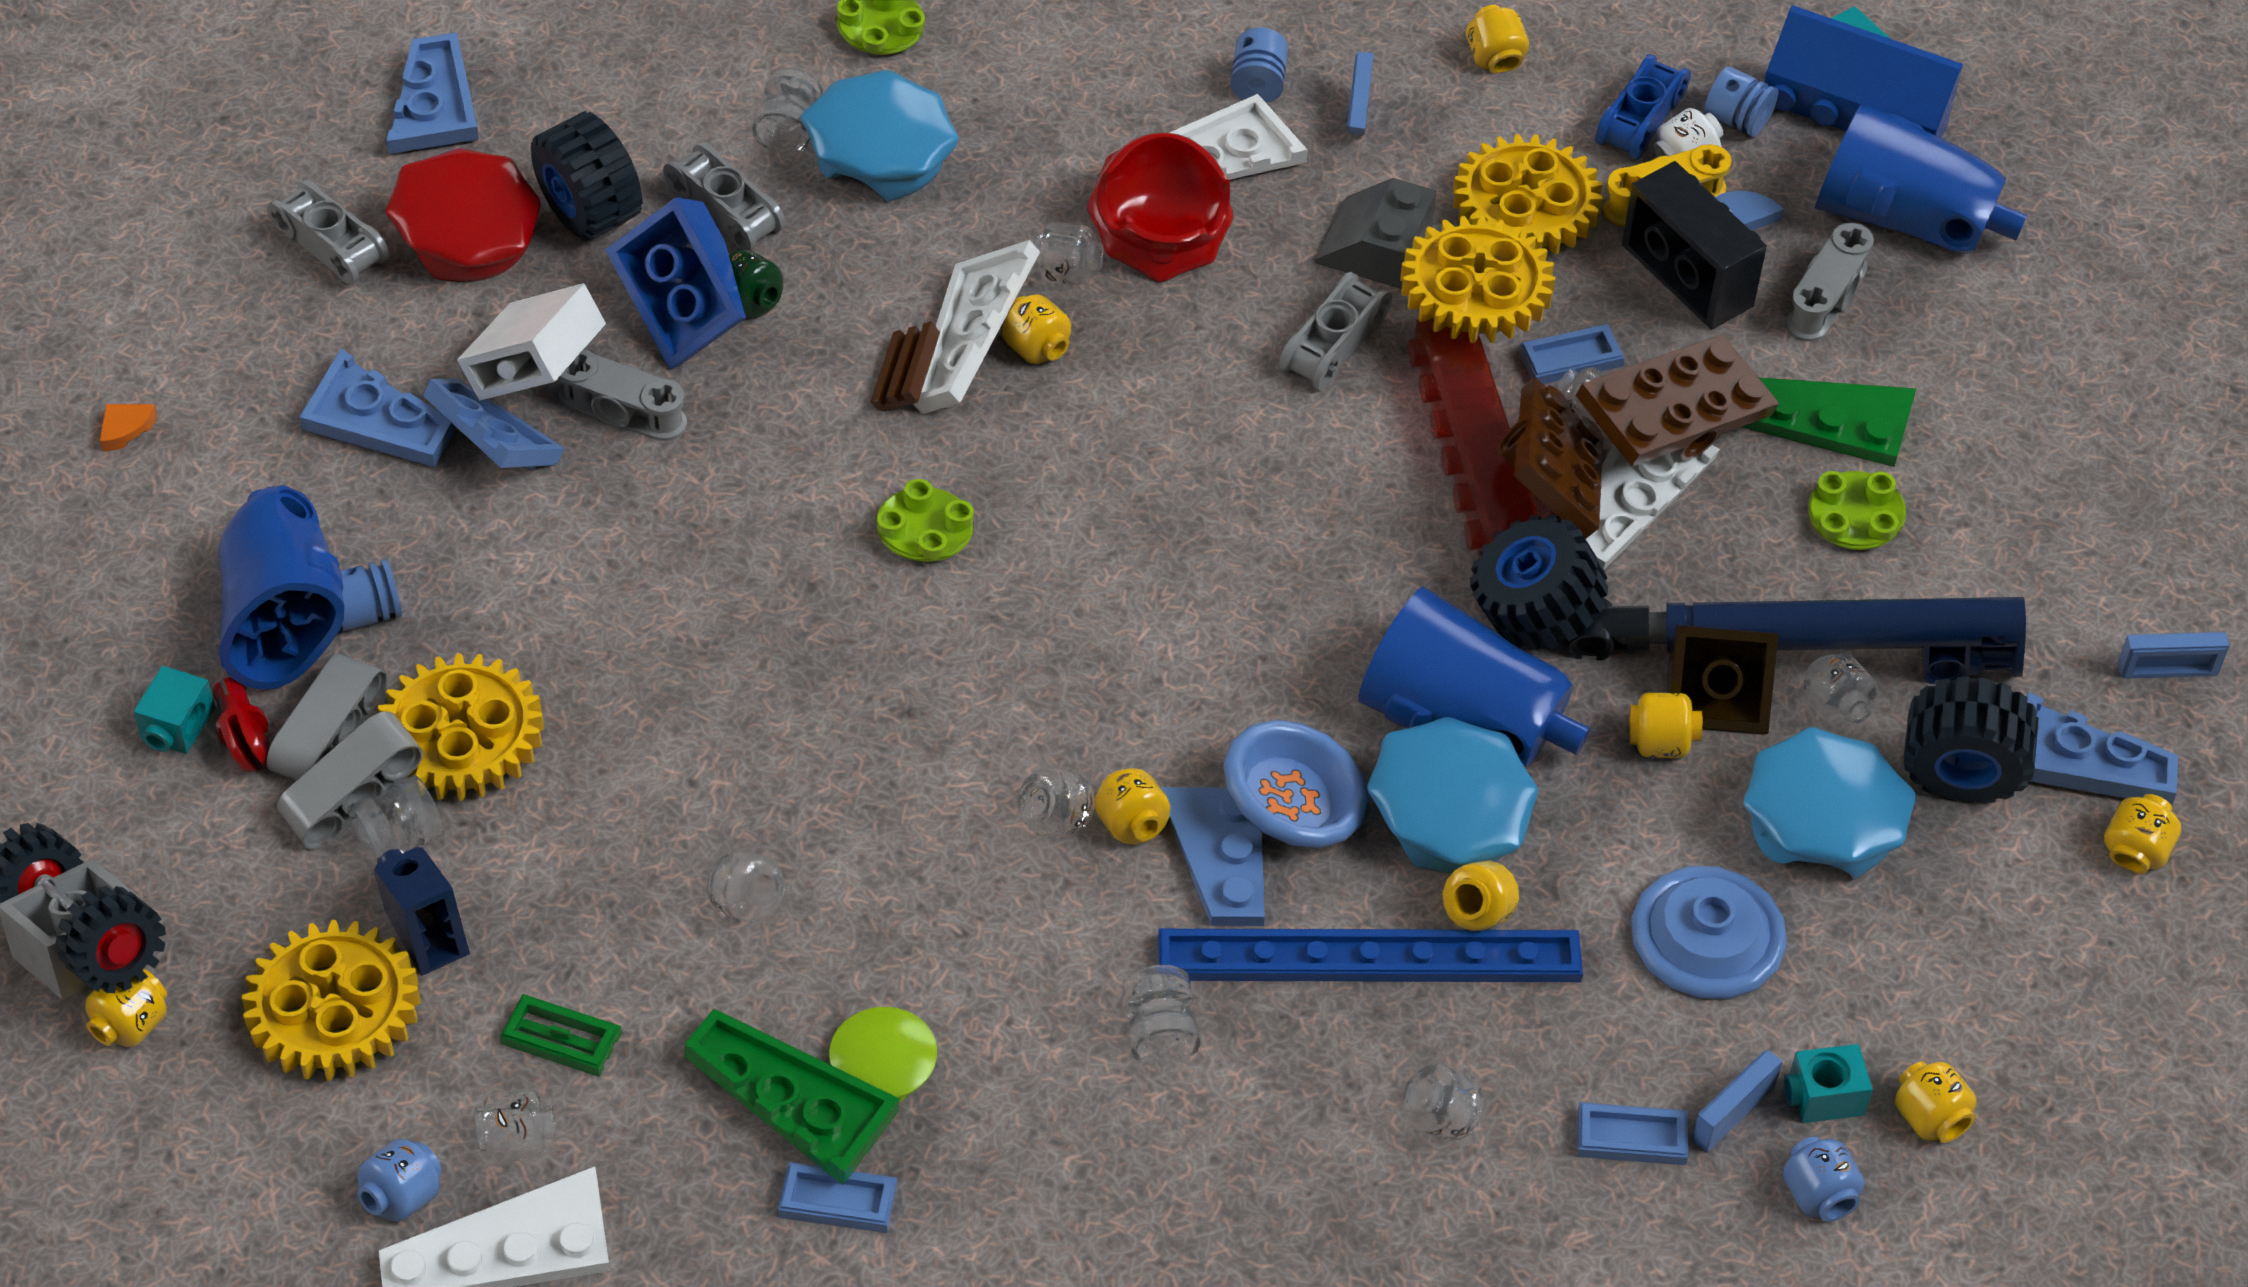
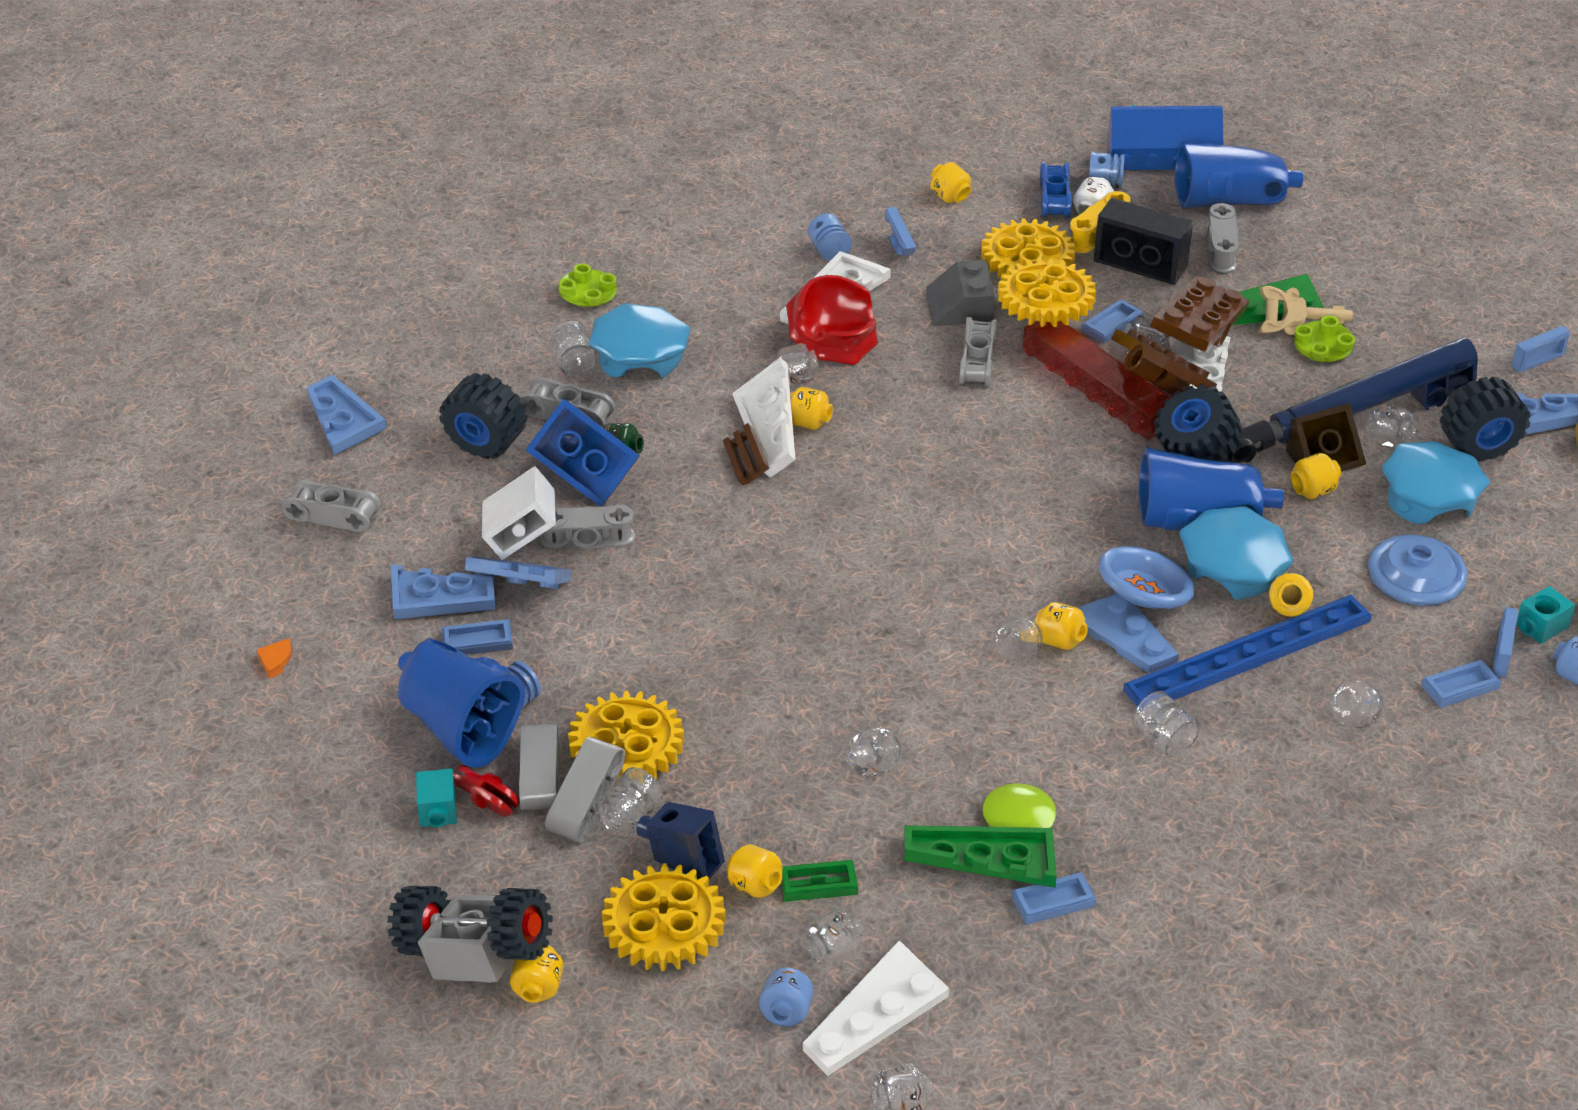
camera: 25 degrees left, 10 degrees down
(383, 500) = (479, 636): none -> medium blue tile
(464, 213) = (417, 464): red piece -> none
(479, 984) = (754, 871): none -> yellow head
(925, 522) = (821, 529): lime dish -> none
(1842, 446) = (1294, 311): none -> tan piece

